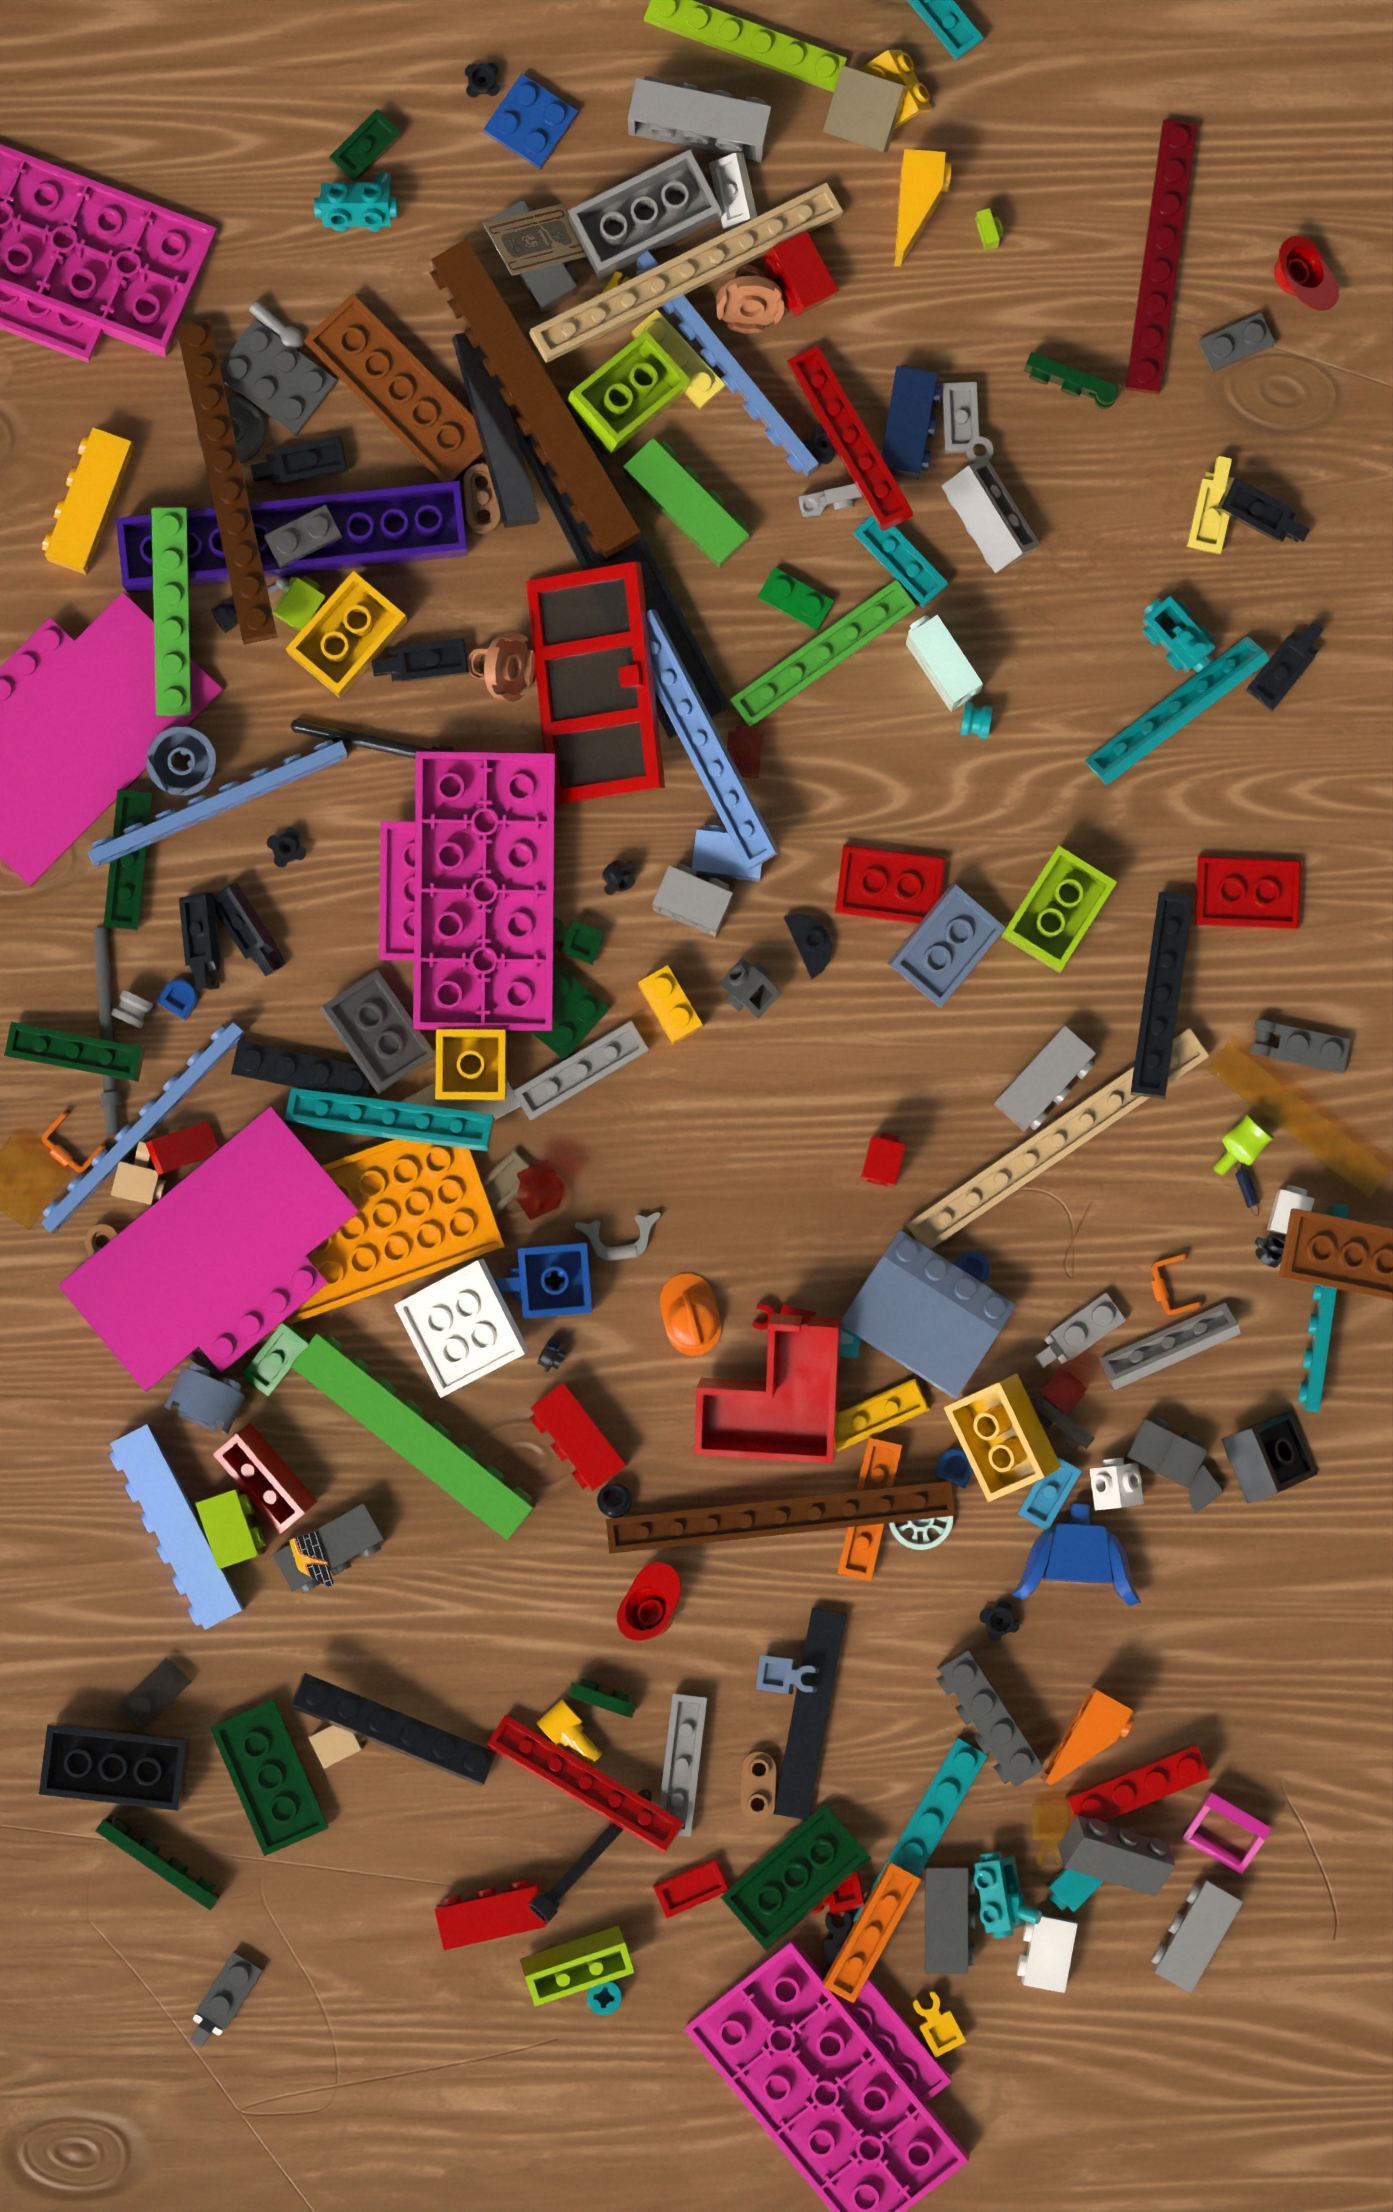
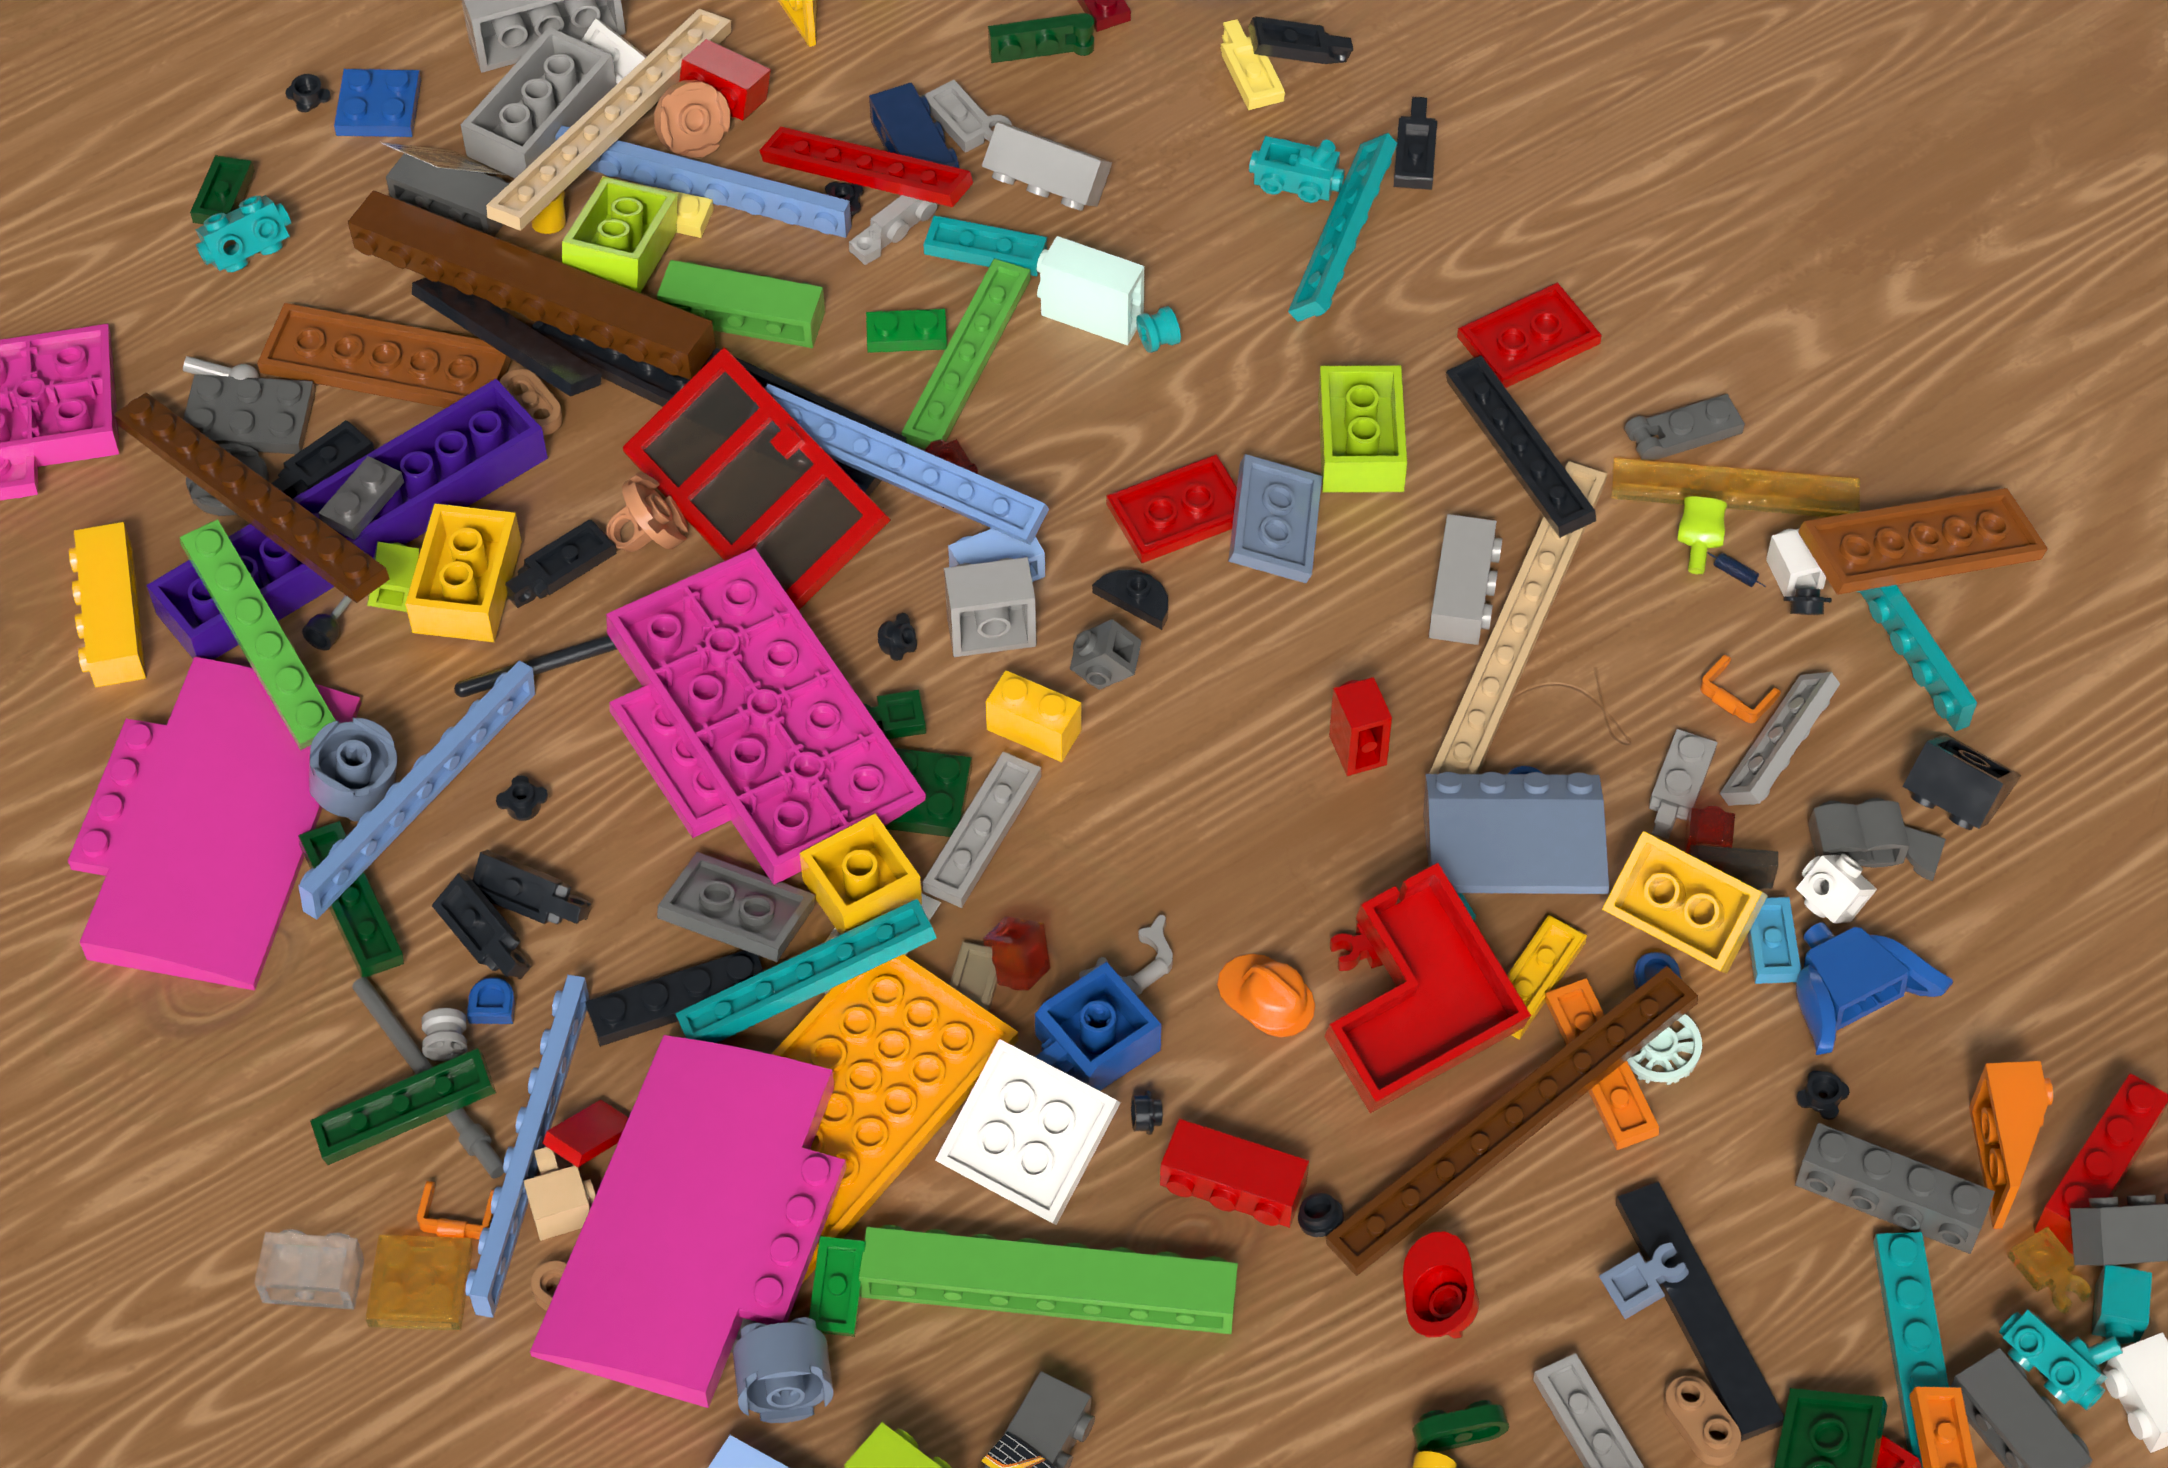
camera: 30 degrees left, 30 degrees down
(265, 1478) = (924, 1417): red brick -> none

